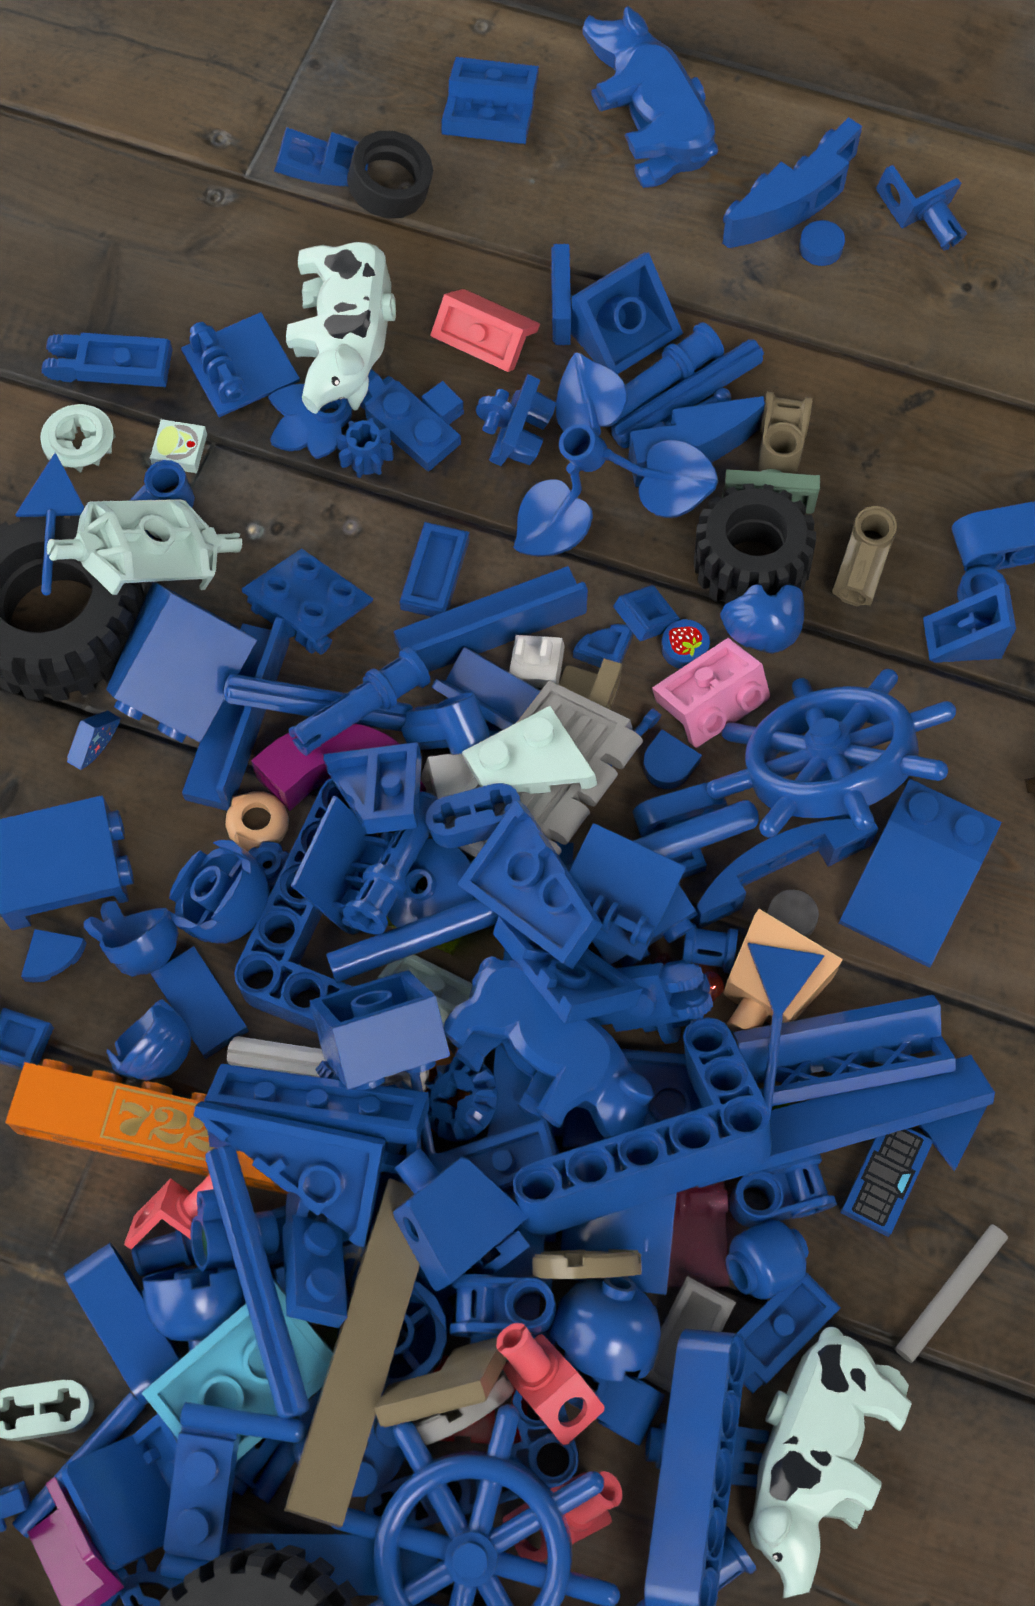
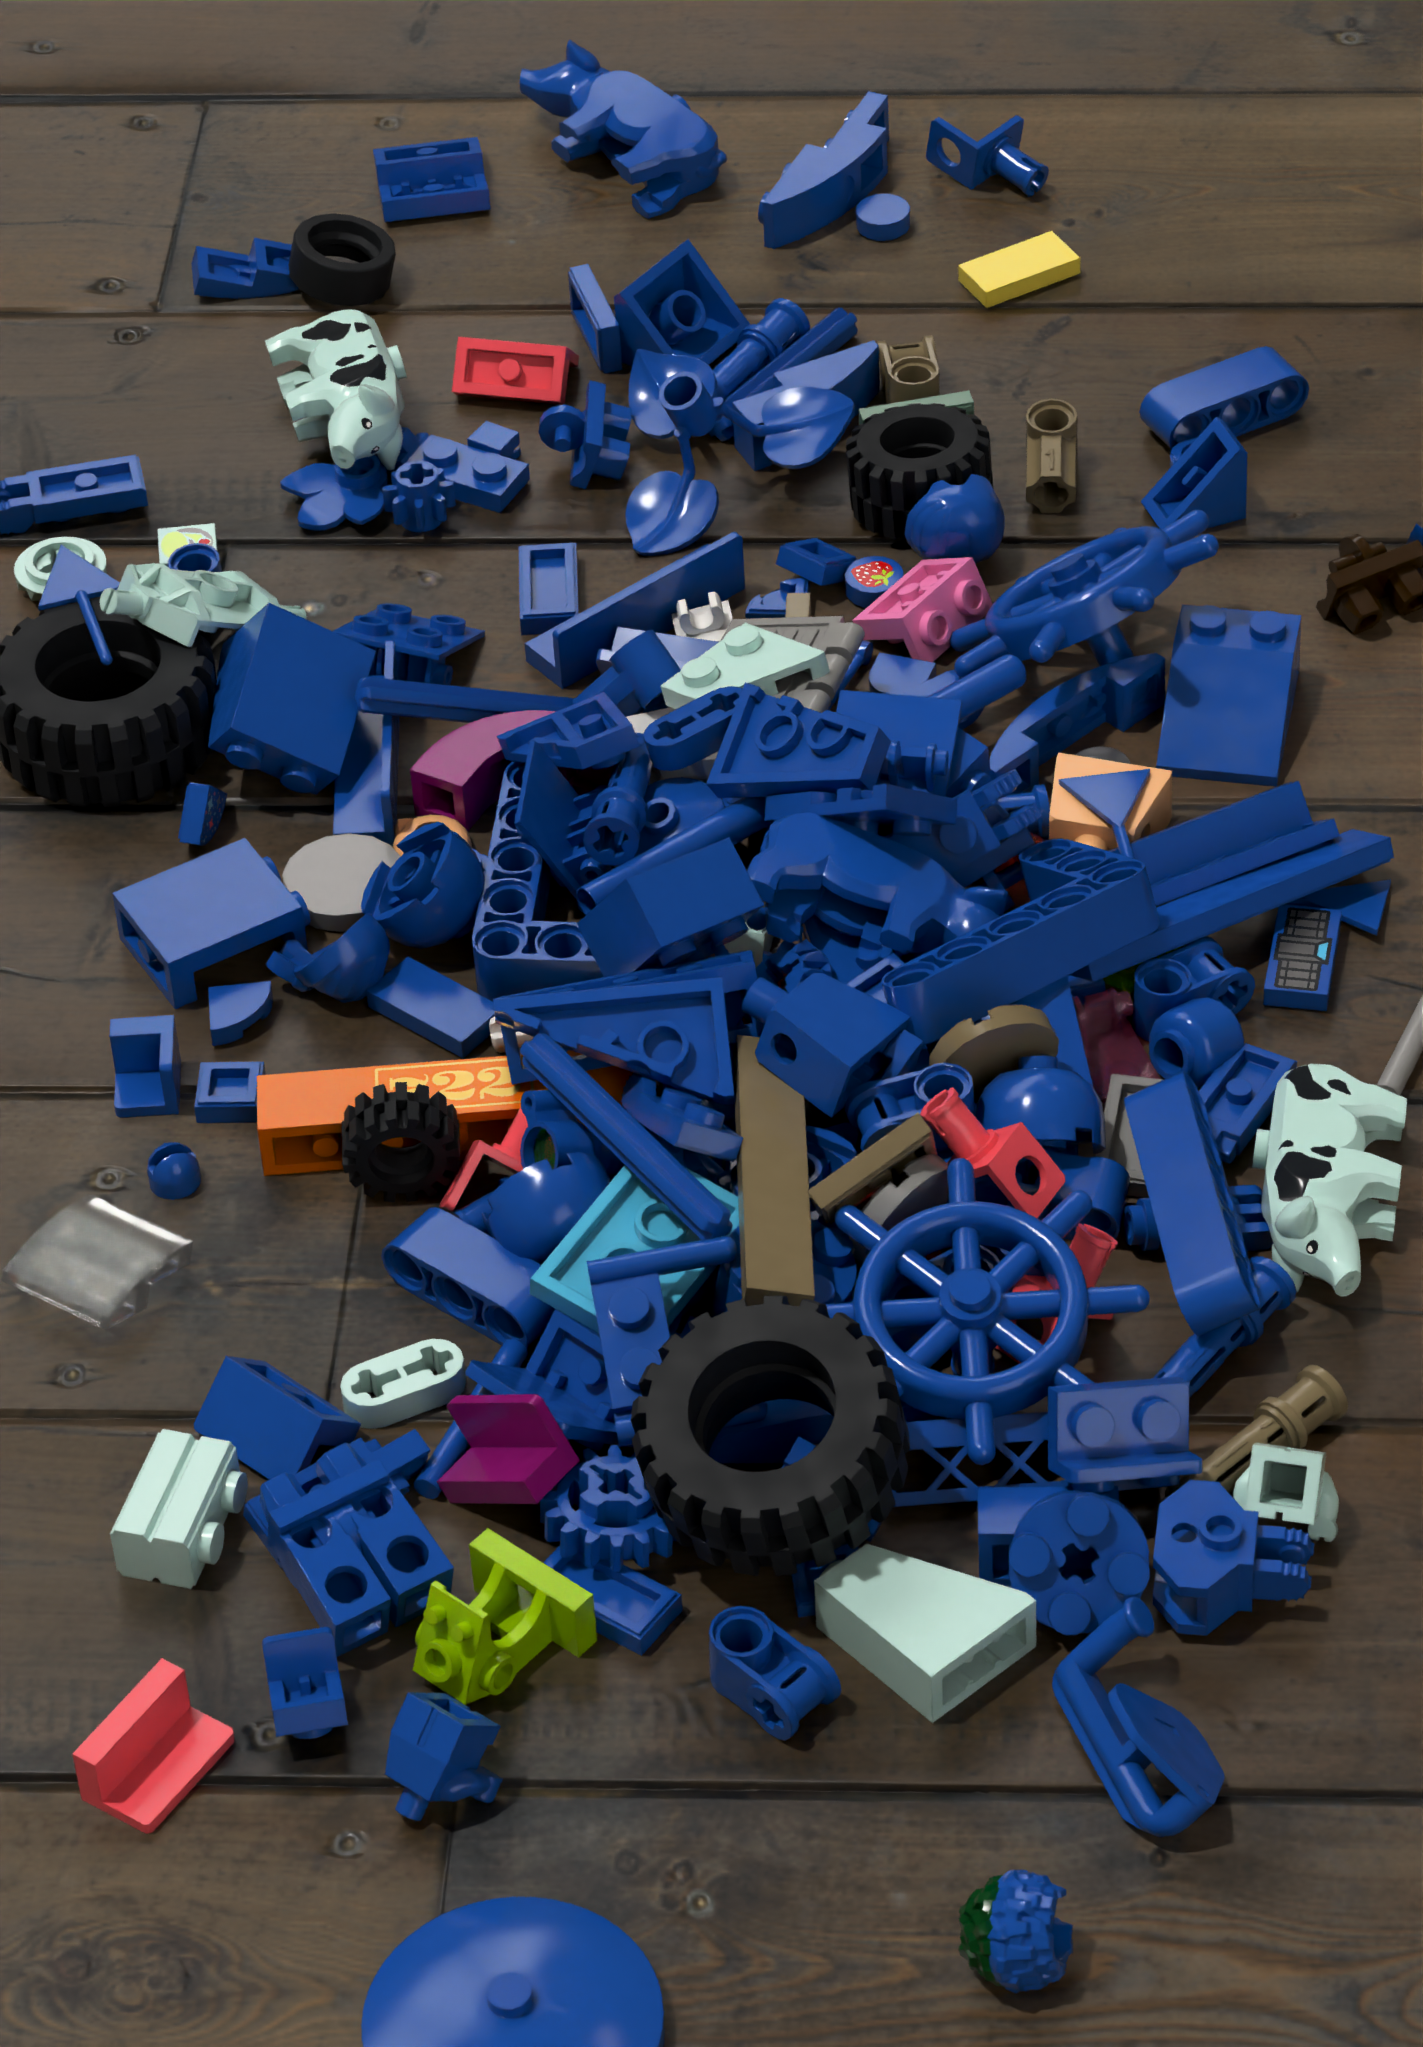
camera: 15 degrees left, 25 degrees down
(110, 1169) = (398, 1116): none -> black tyre
(152, 1045) = (406, 1032): blue hair -> none
(169, 834) = (334, 876): none -> light grey tile
(238, 363) = (226, 464): blue hinge -> none
(378, 690) = (535, 671): blue pin -> none
(909, 332) = (1019, 269): none -> light yellow tile

